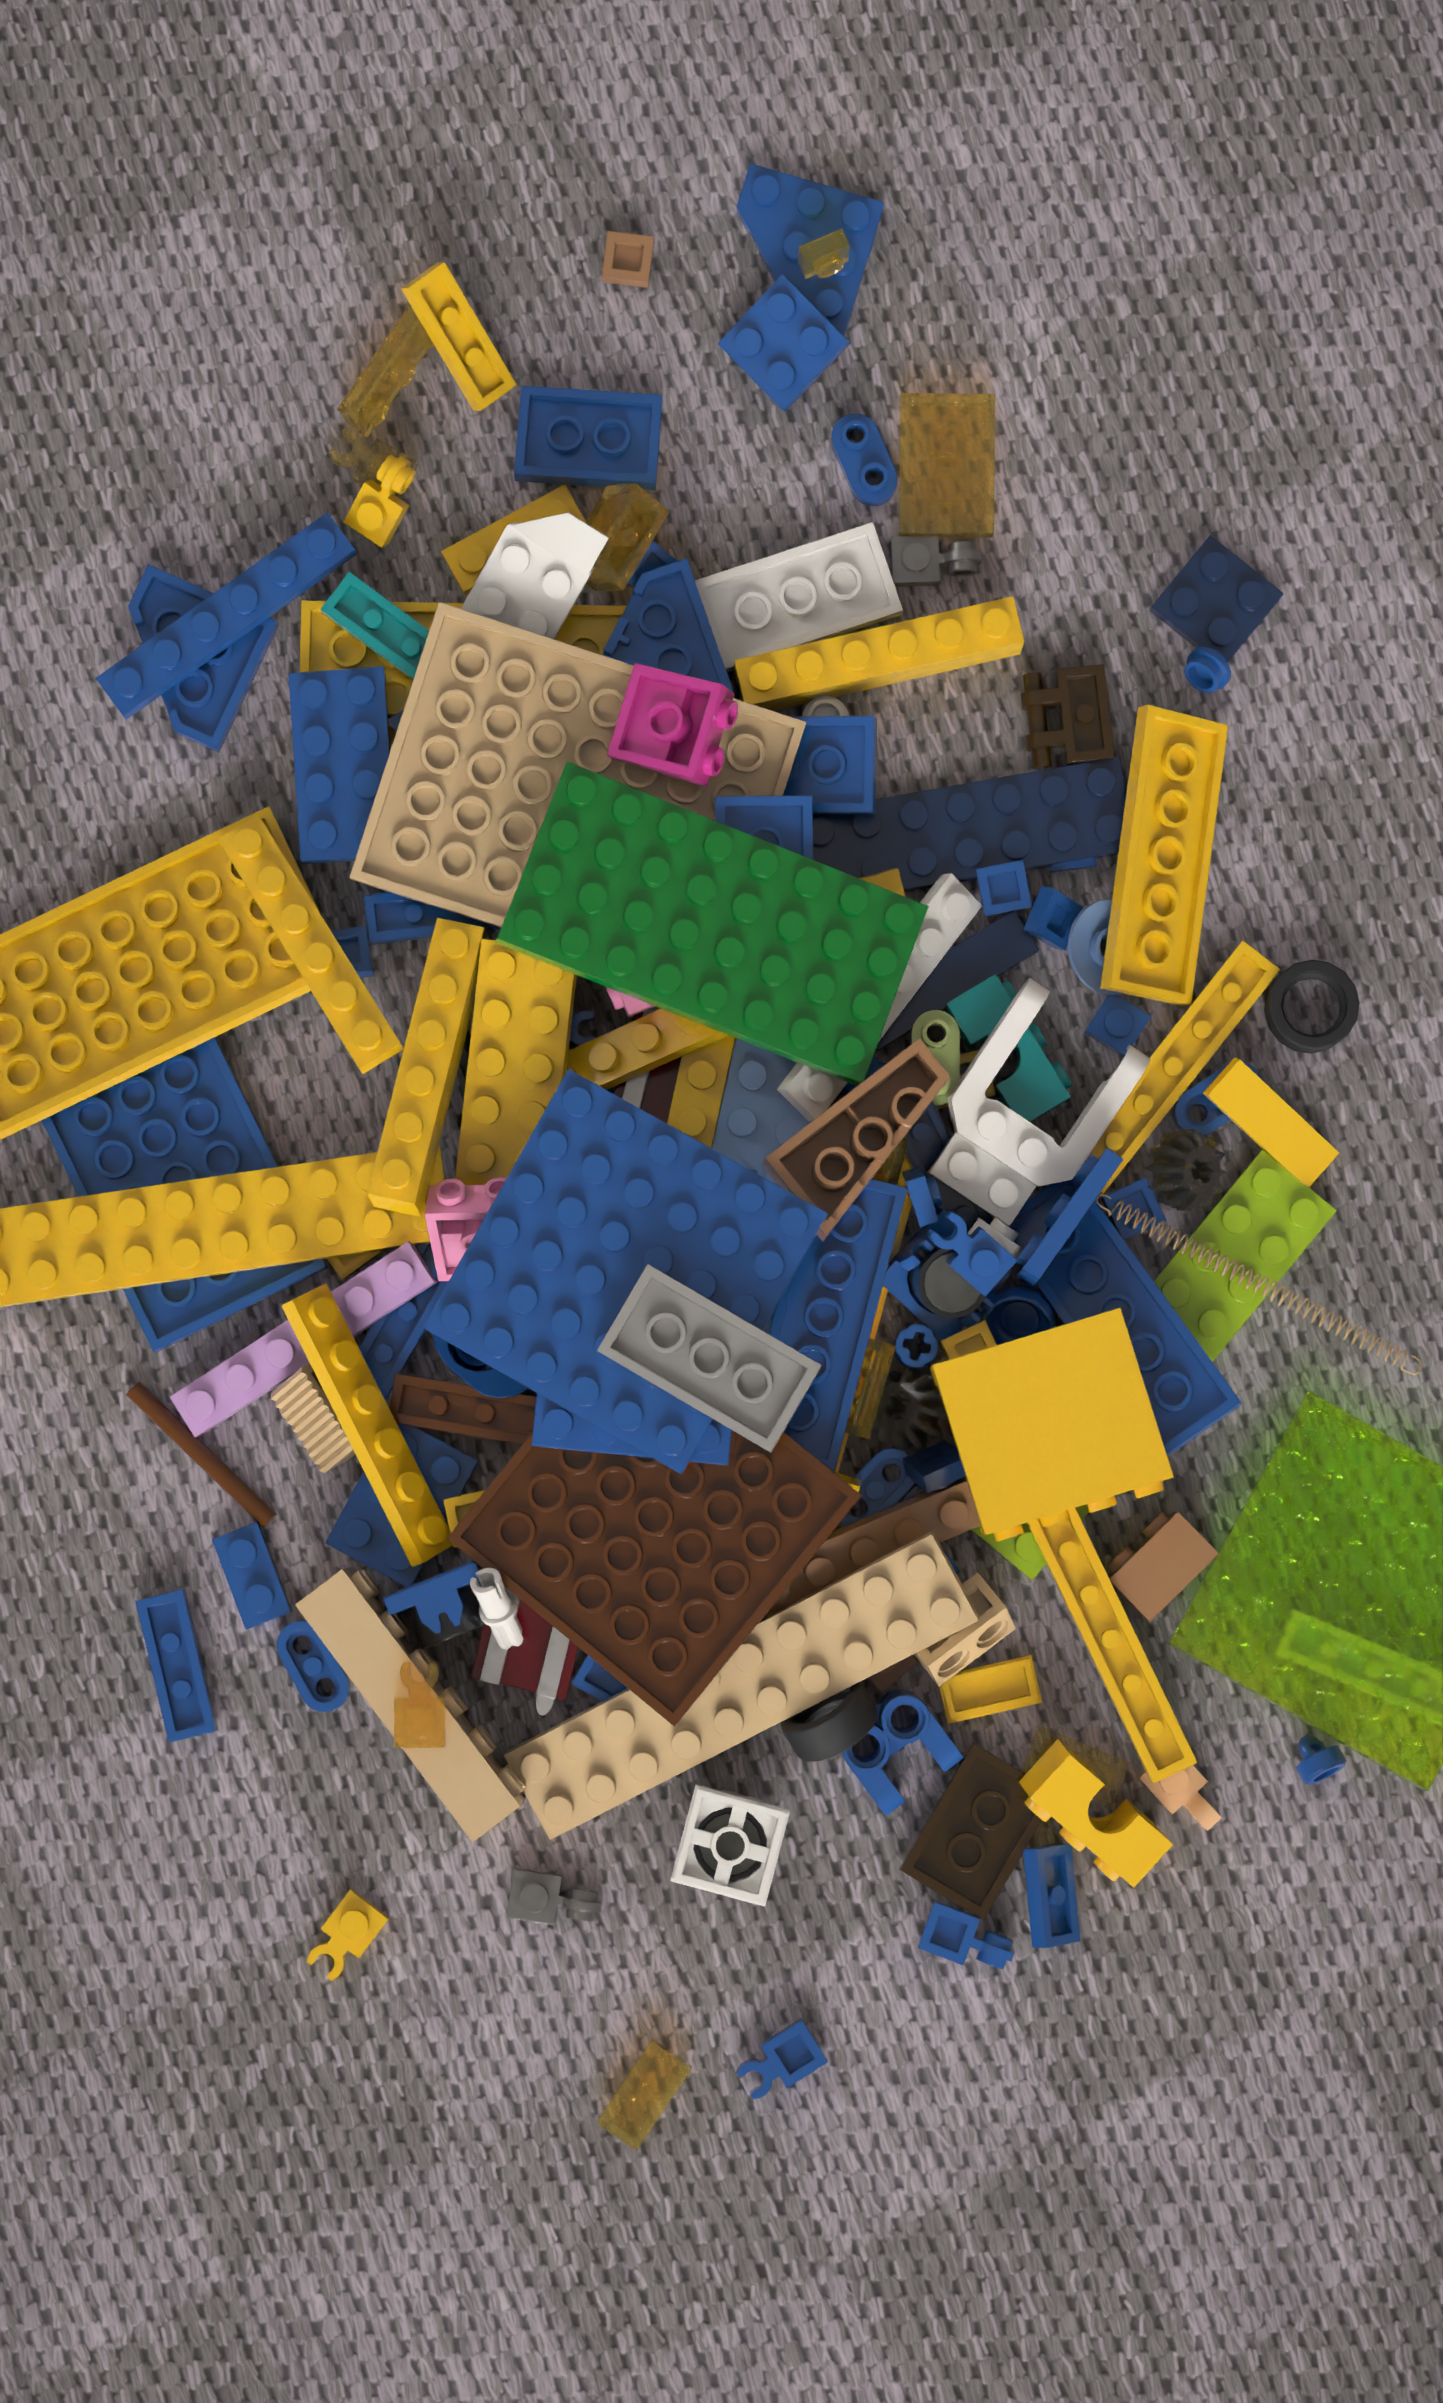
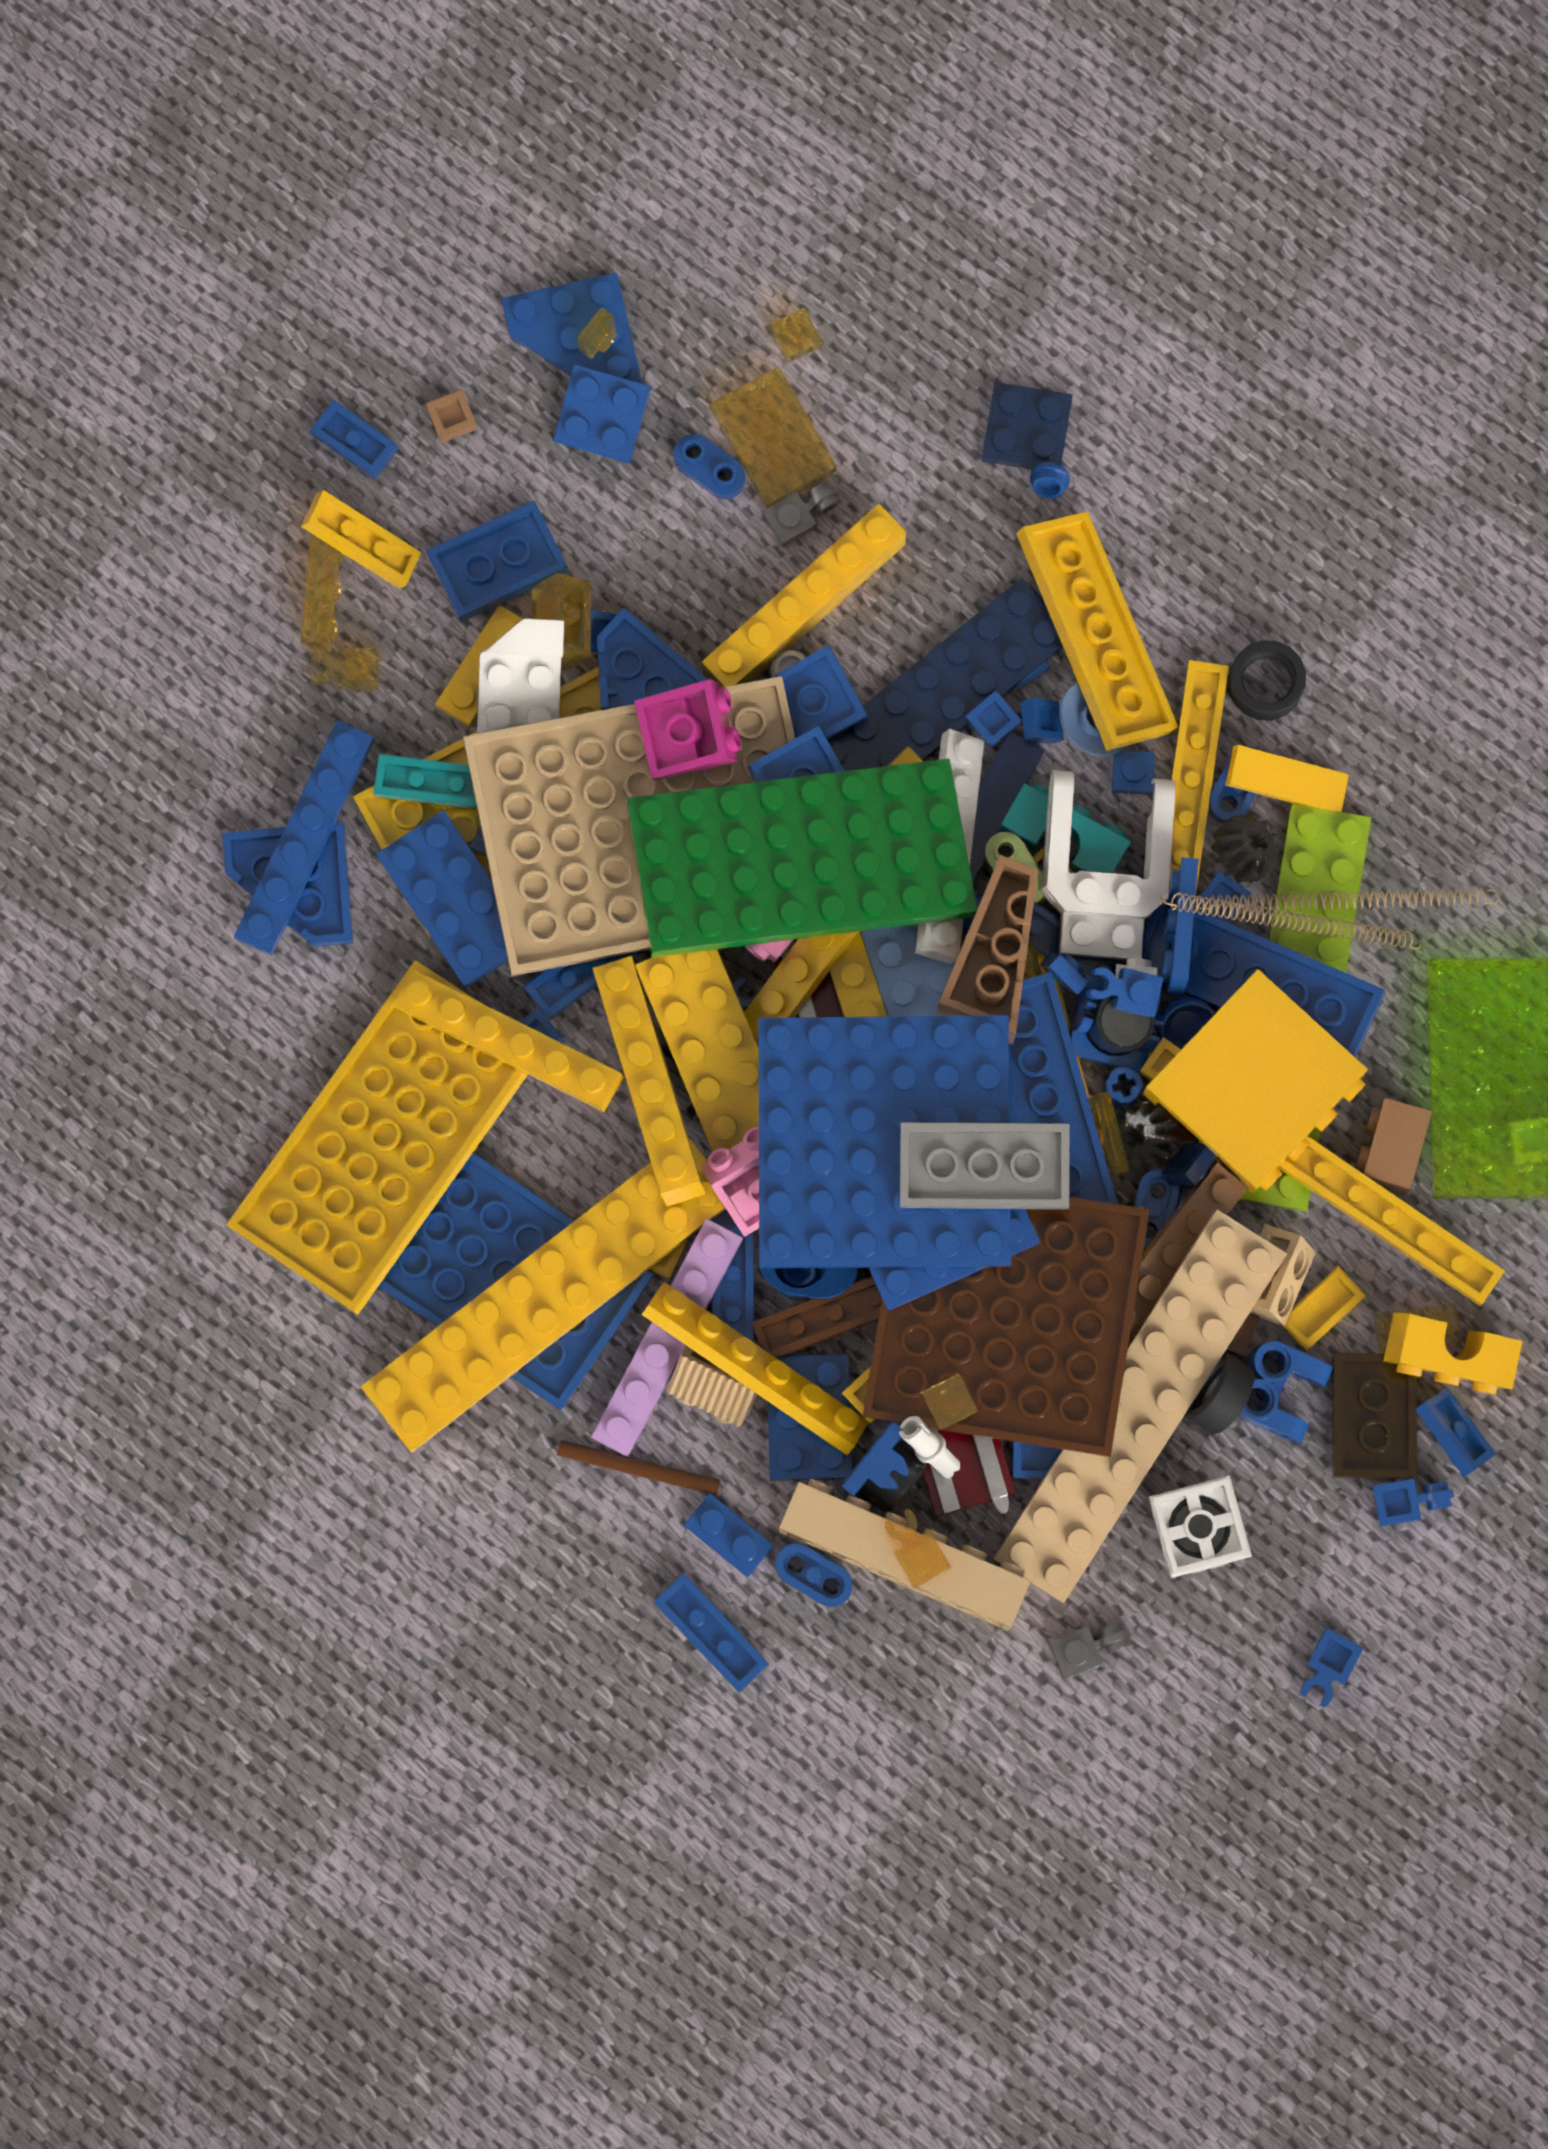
camera: 30 degrees left, 5 degrees down
(351, 1929) = (953, 1753): yellow plate -> none
(376, 508) = (371, 699): yellow plate -> none
(514, 228) = (354, 439): none -> blue plate
(540, 1577) = (949, 1402): none -> clear yellow plate
(644, 2094) = (1242, 1751): clear yellow plate -> none
(800, 595) = (721, 588): white plate -> none
(1032, 371) = (795, 335): none -> clear yellow plate
(1083, 716) = (977, 561): dark brown plate -> none
(1183, 1790) = (1504, 1302): light nougat plate -> none
(1184, 1274) = (1289, 924): none -> tan piece

